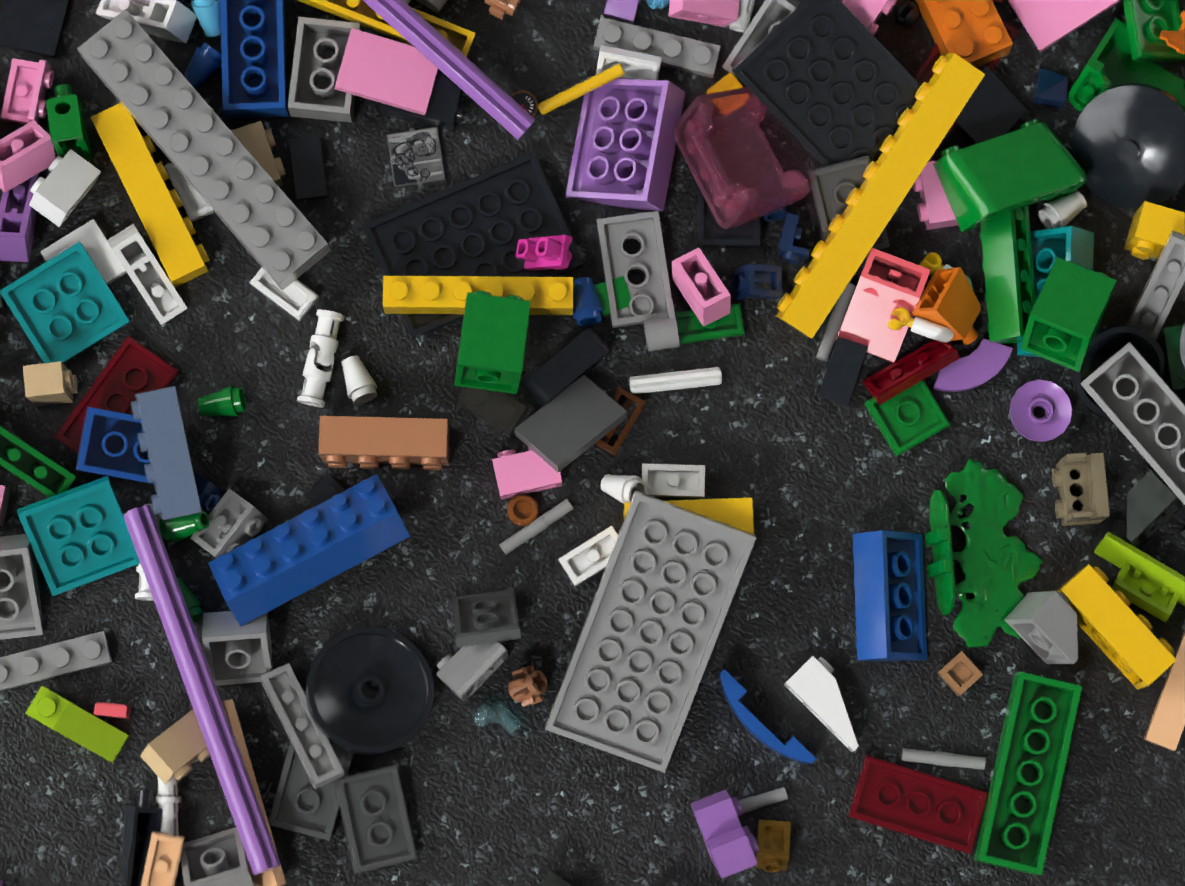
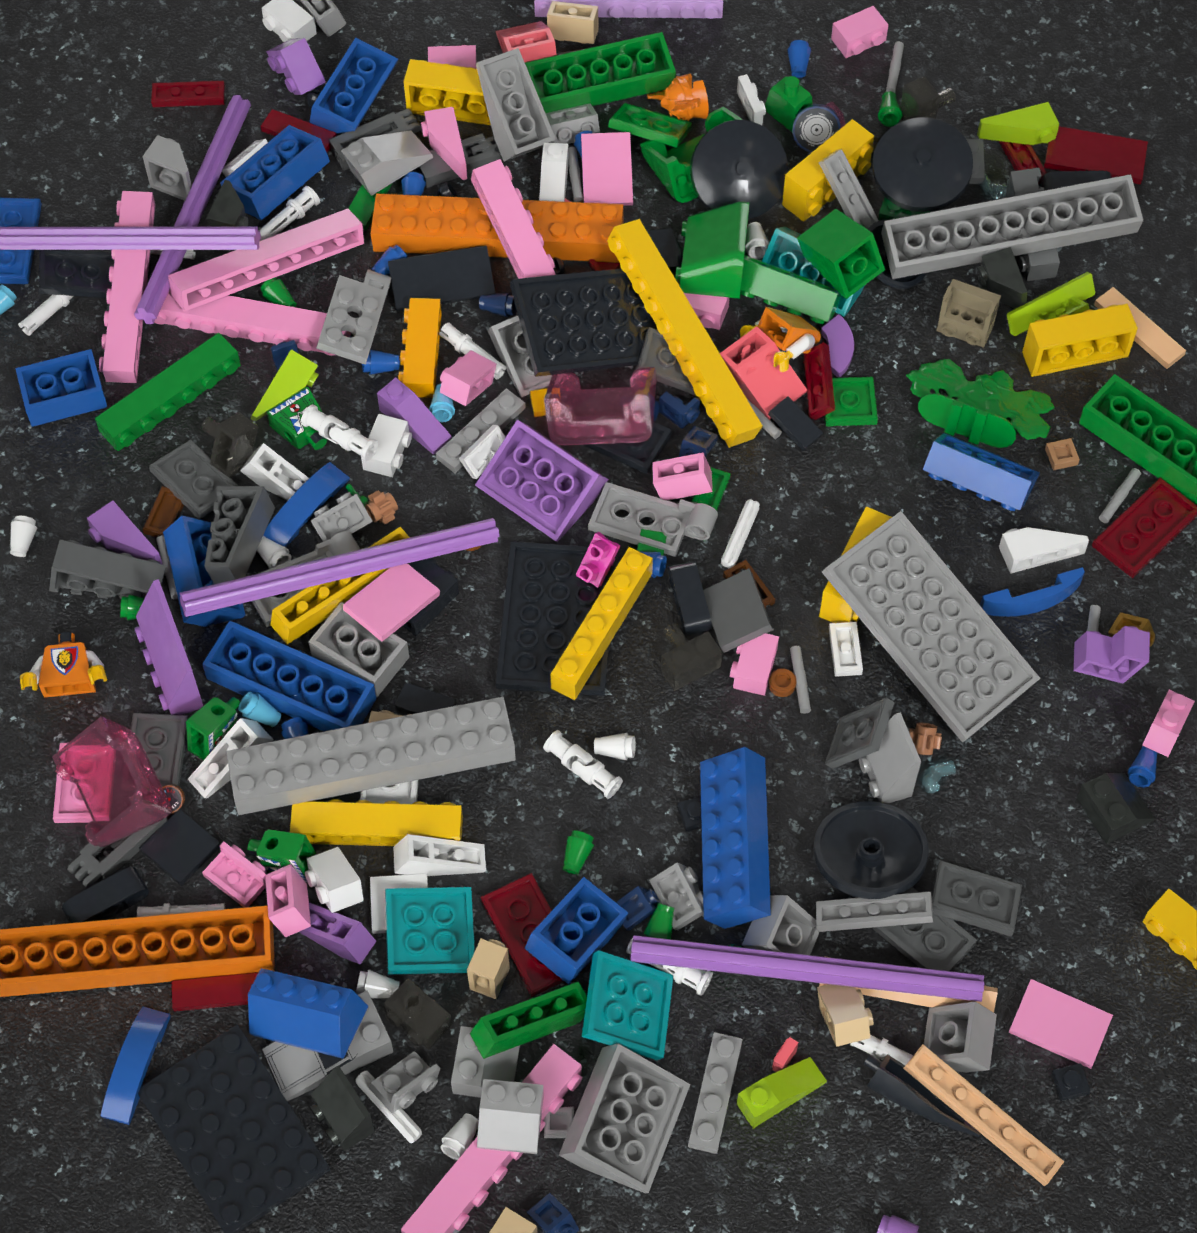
camera: 60 degrees left, 20 degrees down
(167, 453) = (602, 894): sand blue brick -> none
(294, 299) = (505, 773): white tile -> none
(384, 441) = (678, 743): nougat brick -> none
(415, 157) = (463, 627): piece -> none
(492, 342) = (651, 619): green slope -> none
(581, 88) = (483, 481): yellow bar -> none
(622, 486) = (806, 600): white cone -> none
(674, 480) = (810, 576): white plate -> none
(1047, 626) = (1059, 377): light grey slope -> none
(1049, 398) = (894, 309): medium lavender dish -> none
(1050, 88) = (664, 209): dark blue slope -> none

